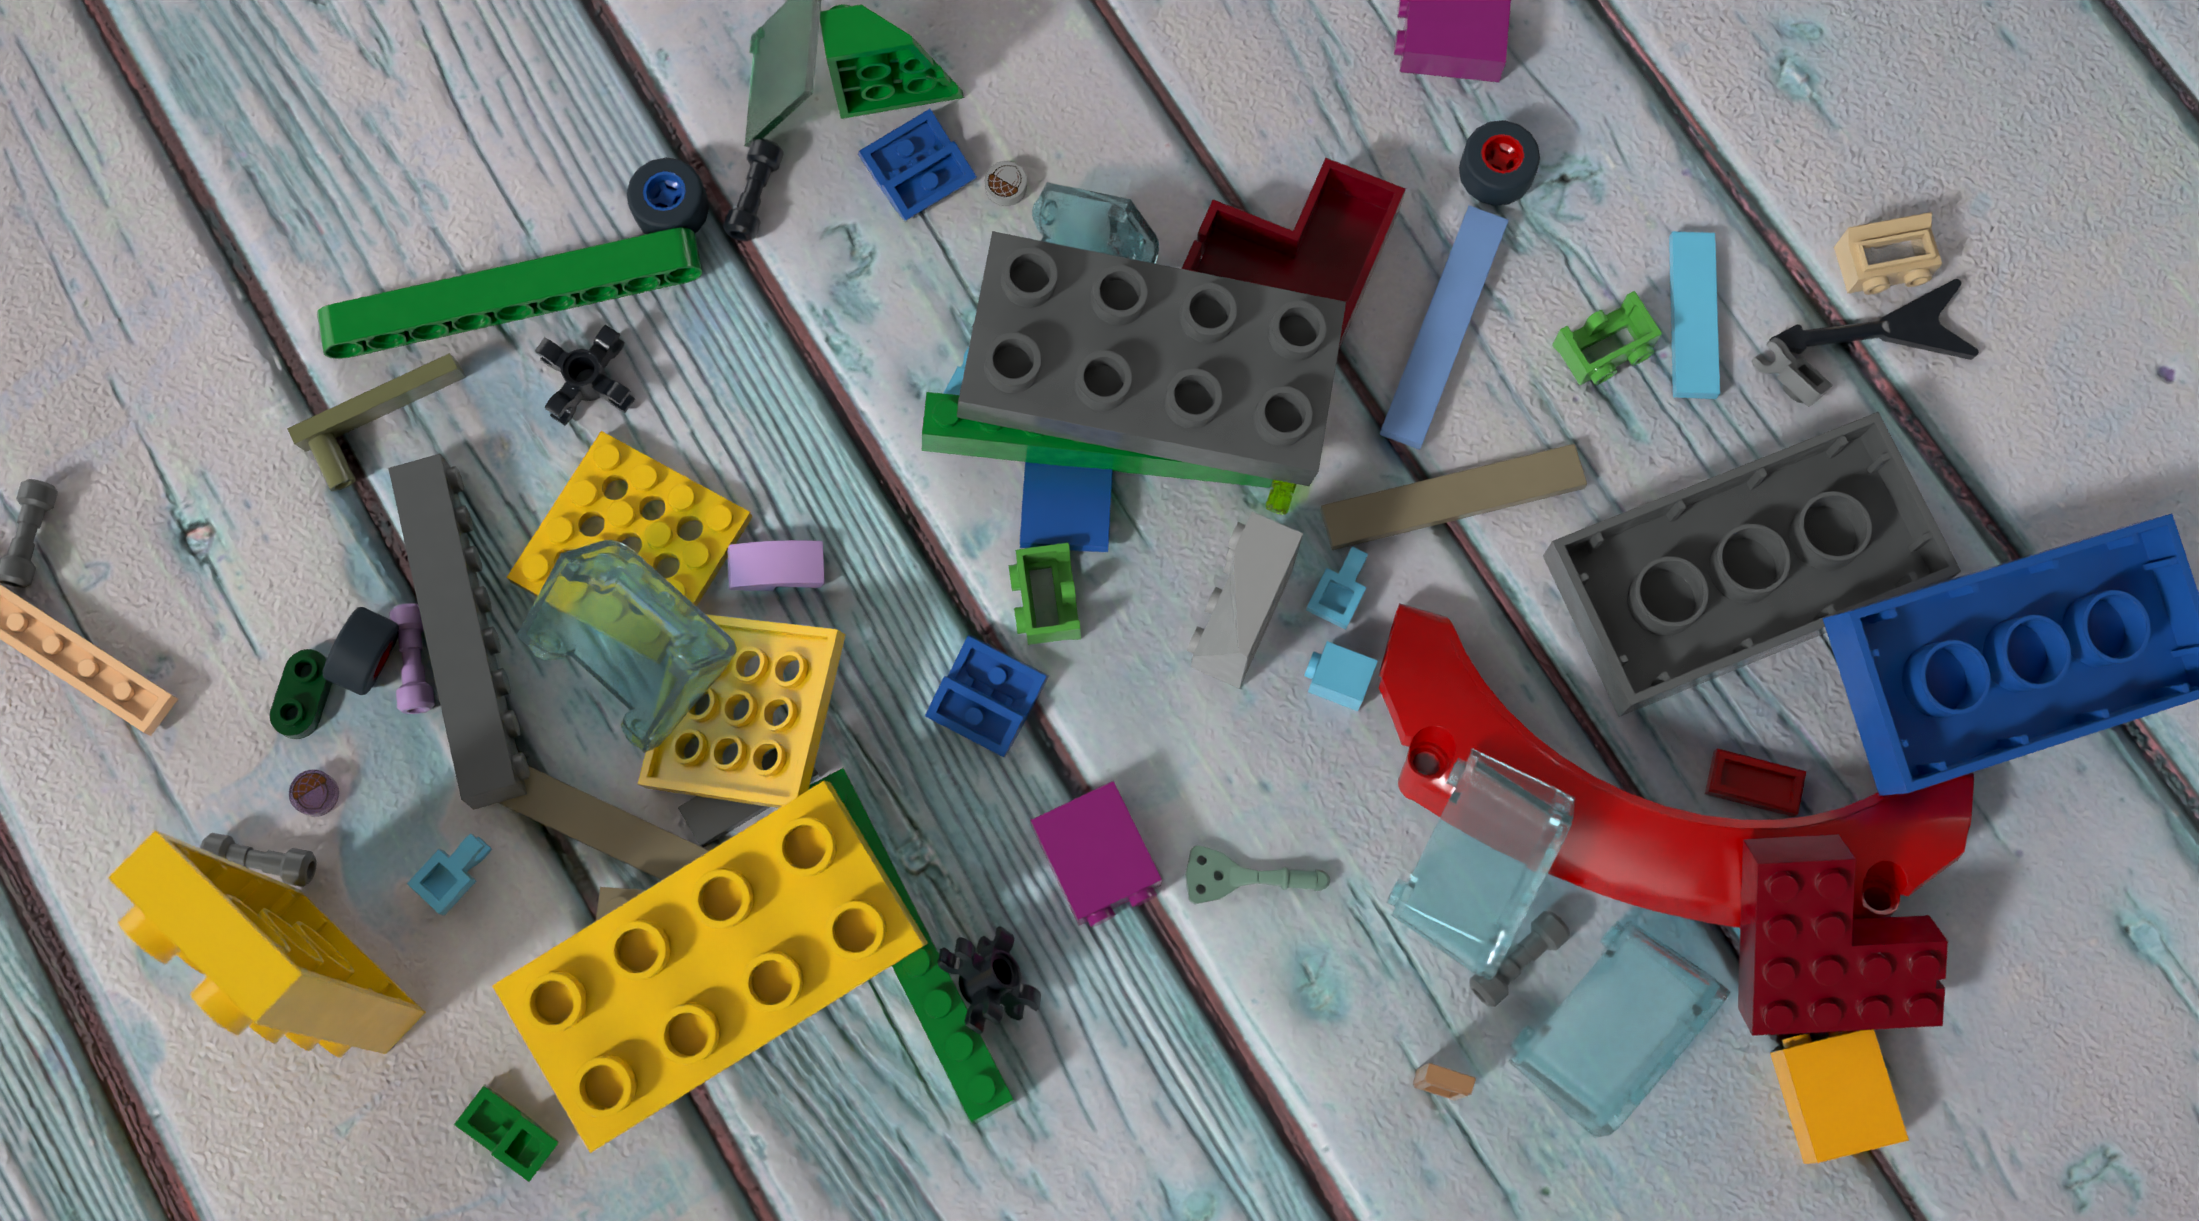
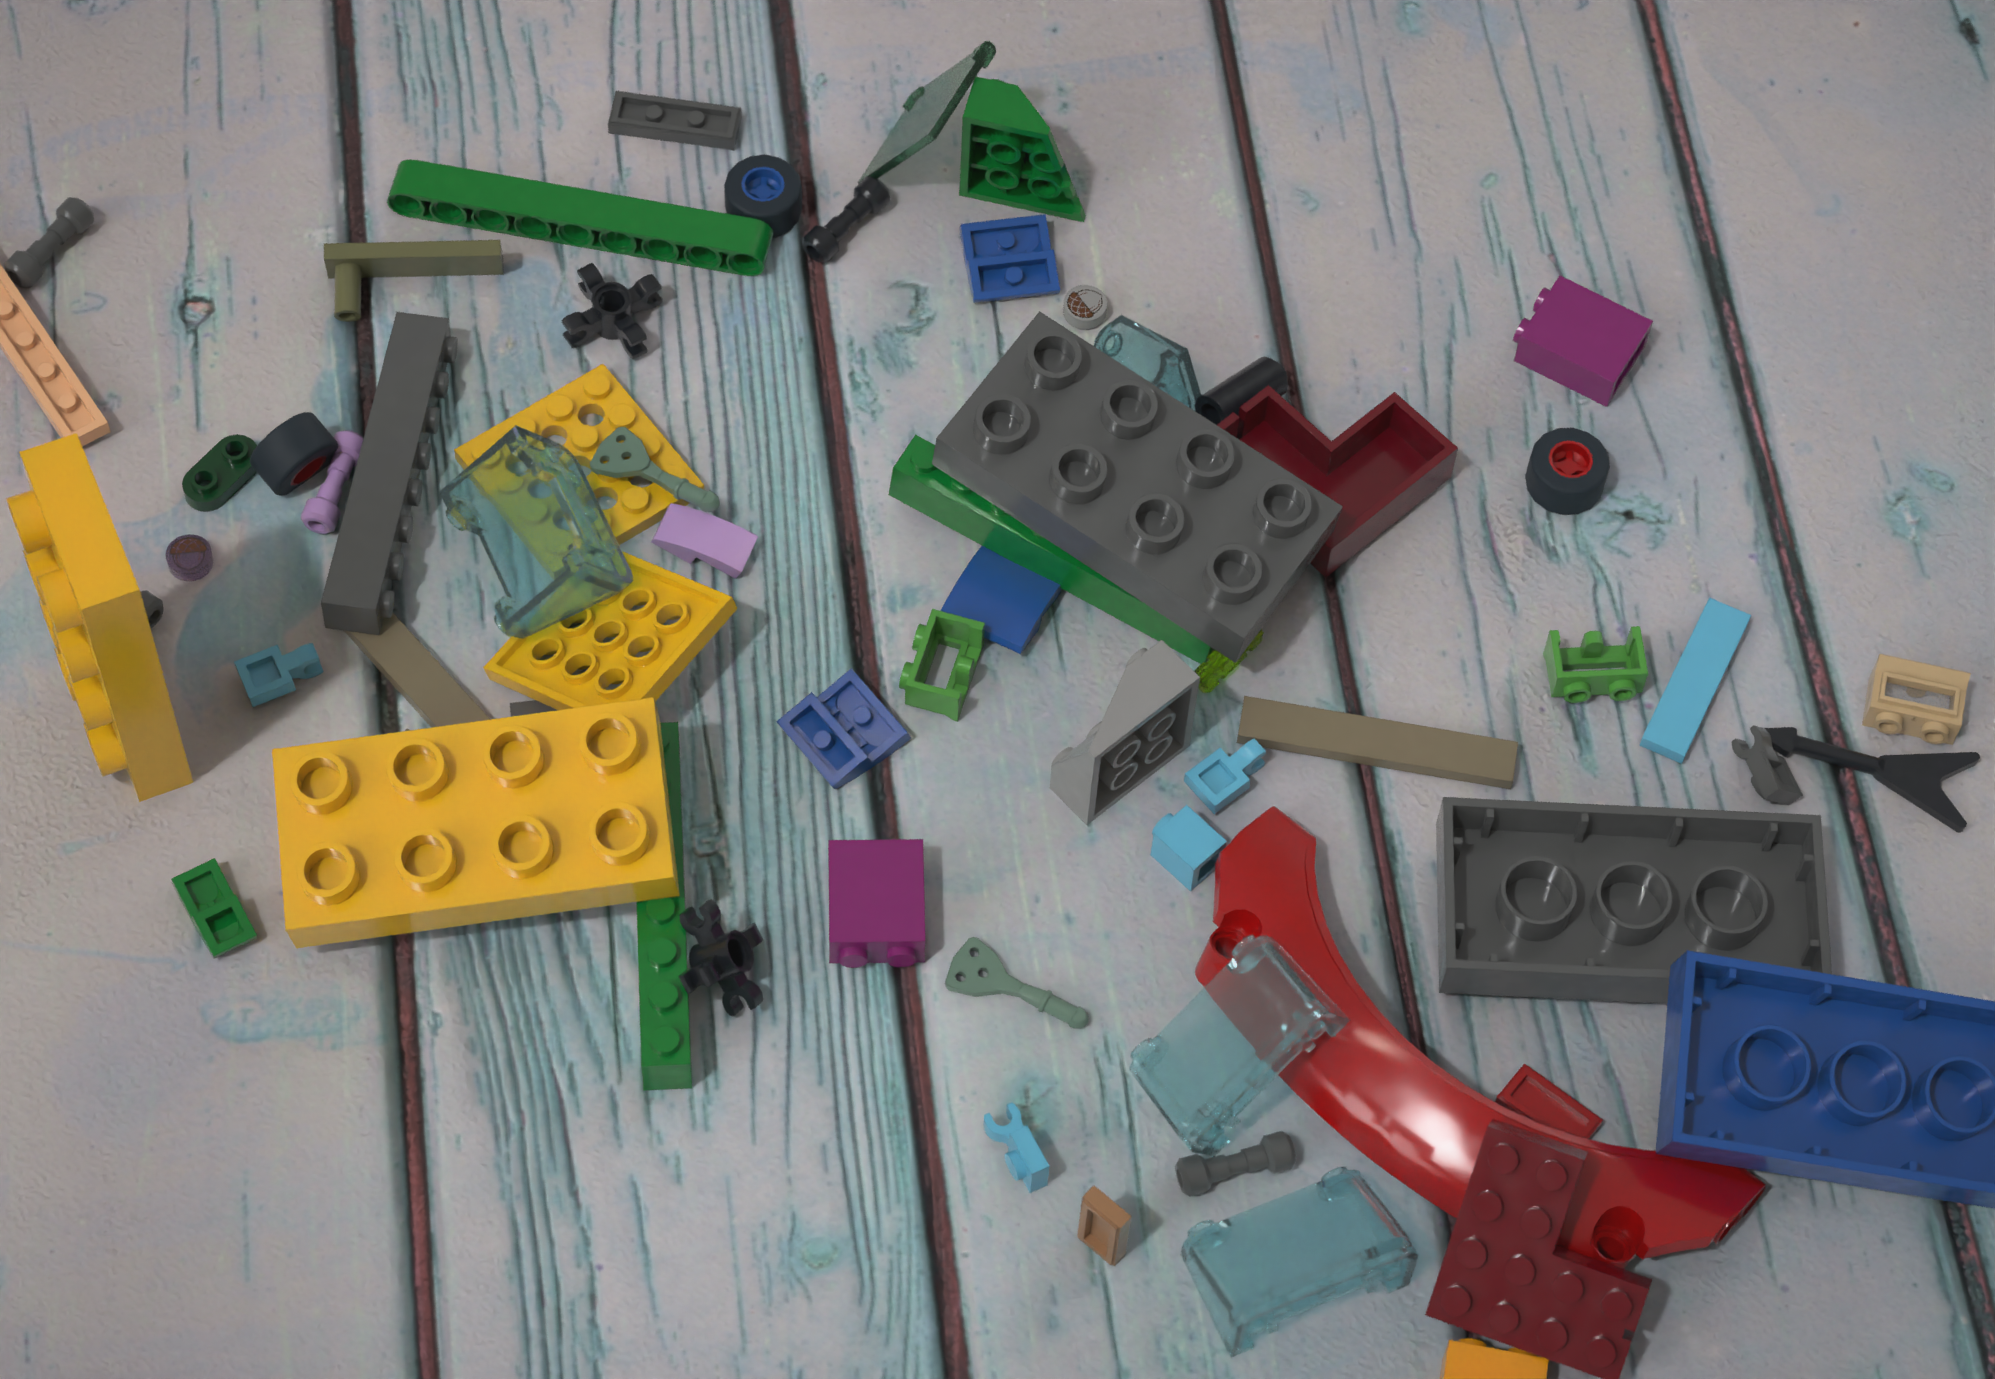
camera: 20 degrees right, 15 degrees down
(549, 155) = (674, 120): none -> dark grey tile
(686, 522) = (641, 465): none -> sand green piece
(1186, 213) = (1240, 388): none -> black brick
(1338, 1039) = (1024, 1155): none -> medium azure plate
(1444, 327) = (1442, 593): medium blue tile -> none

